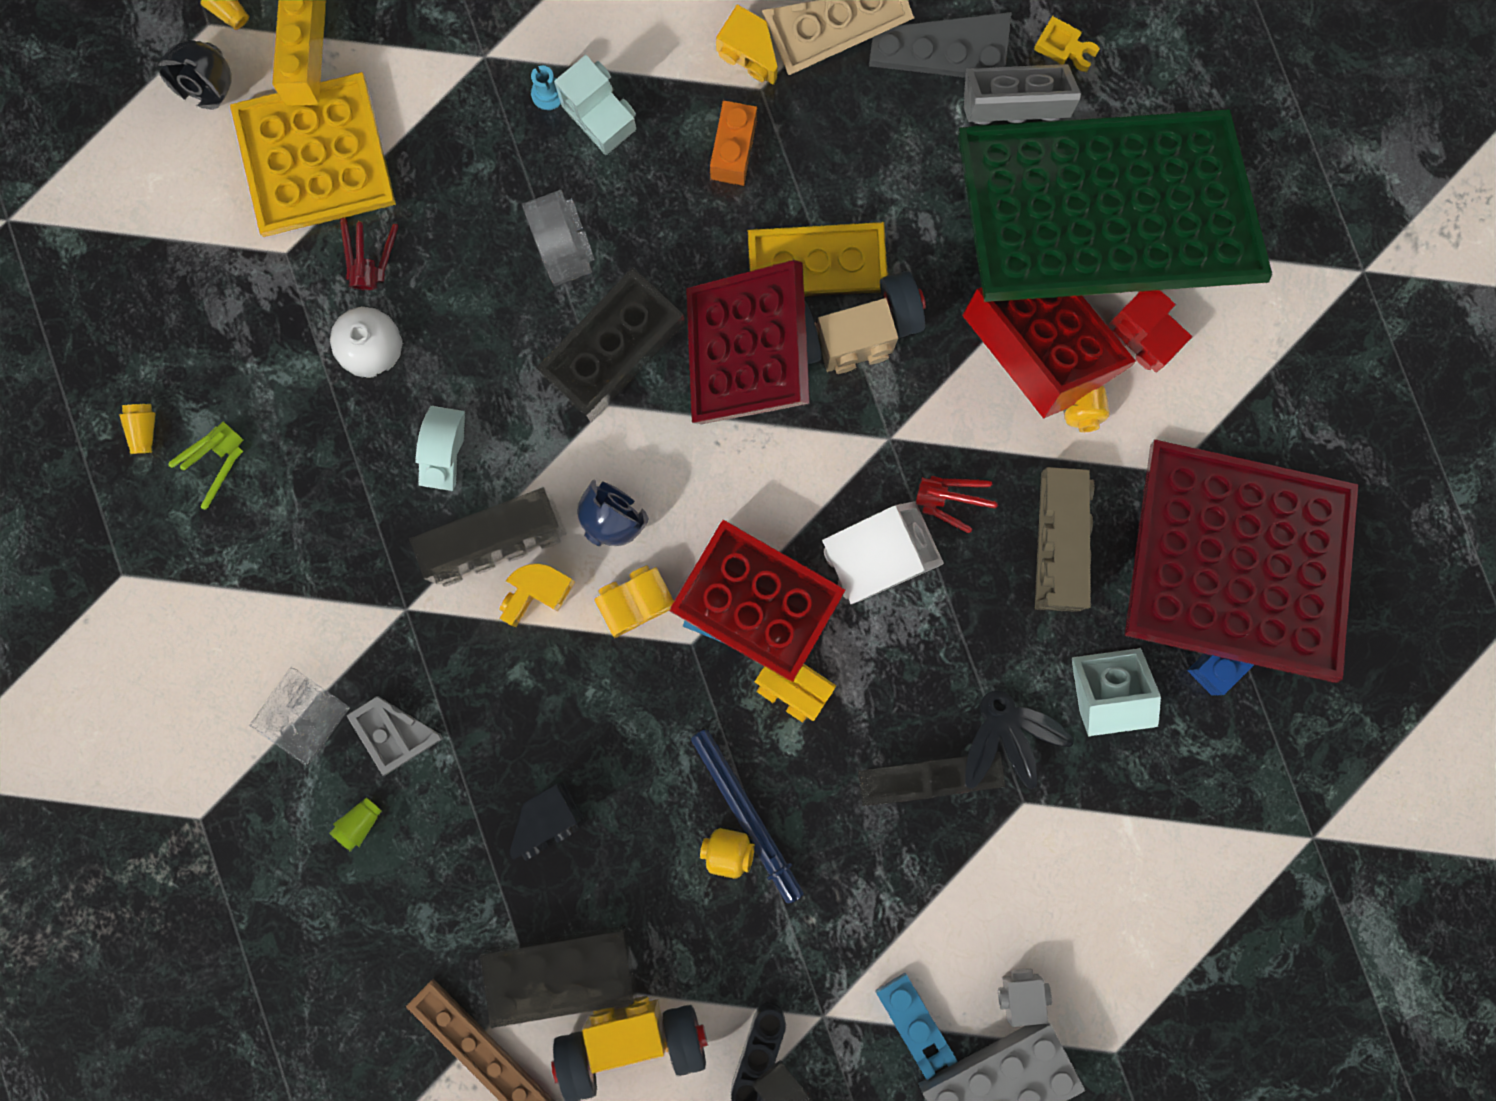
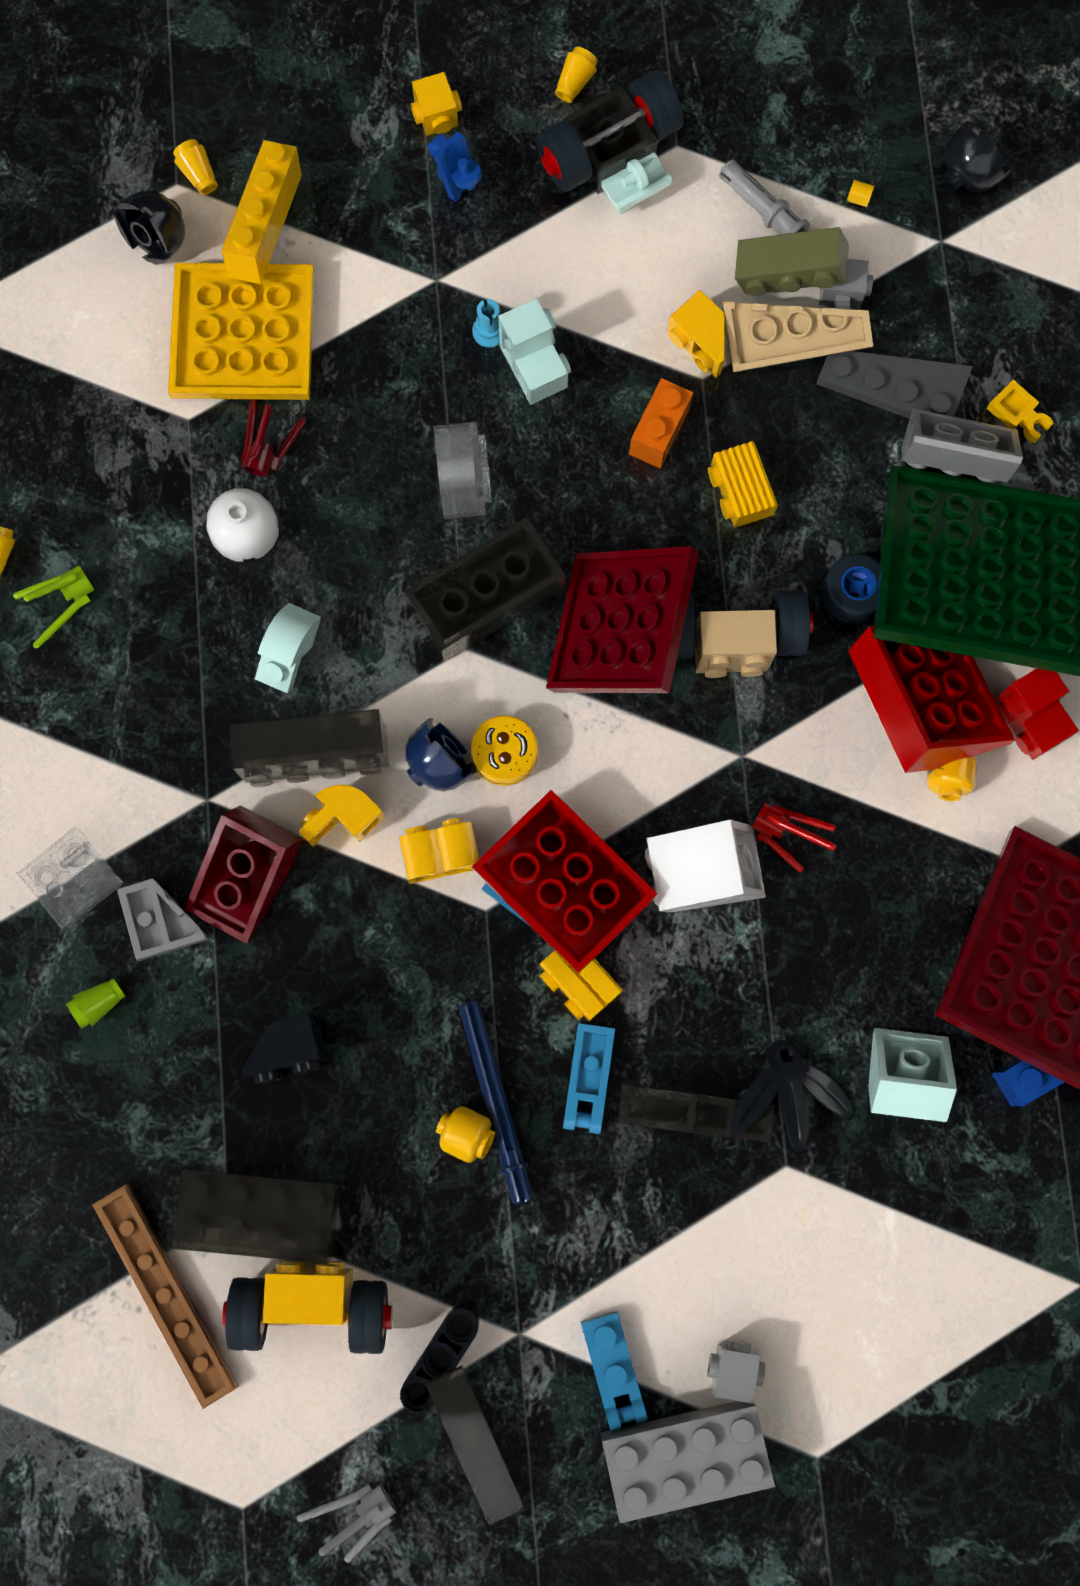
camera: 15 degrees right, 5 degrees down
(457, 668) = (242, 872): none -> dark red slope
(669, 492) = (504, 750): none -> yellow head
(825, 182) = (742, 484): none -> yellow brick
(825, 771) = (589, 1076): none -> dark azure plate
(833, 256) = (730, 560): yellow tile -> none
(959, 241) = (862, 577): none -> black wheel
(1064, 540) = (896, 904): dark tan wedge -> none

